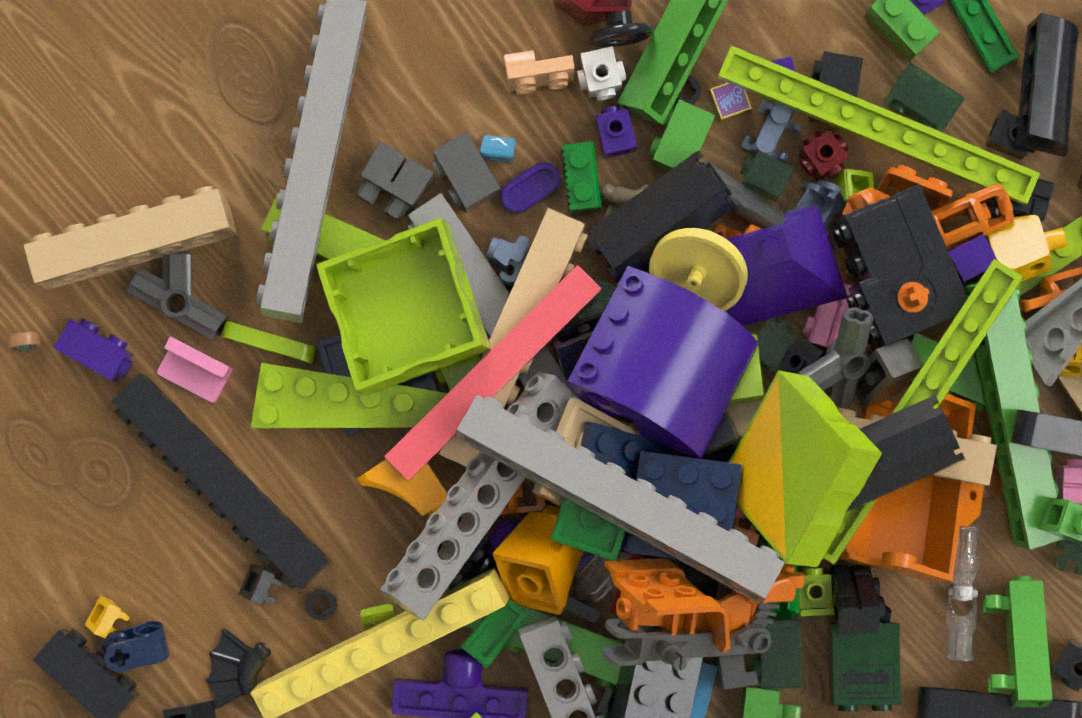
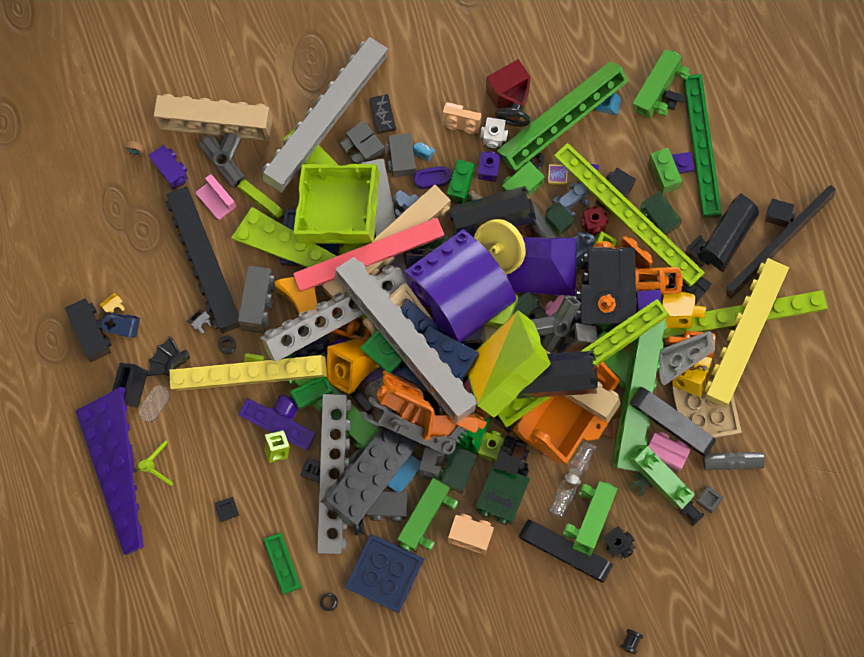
camera: 25 degrees right, 10 degrees down
(340, 515) = (257, 300): none -> dark grey brick
(404, 113) = (383, 114): none -> black tile

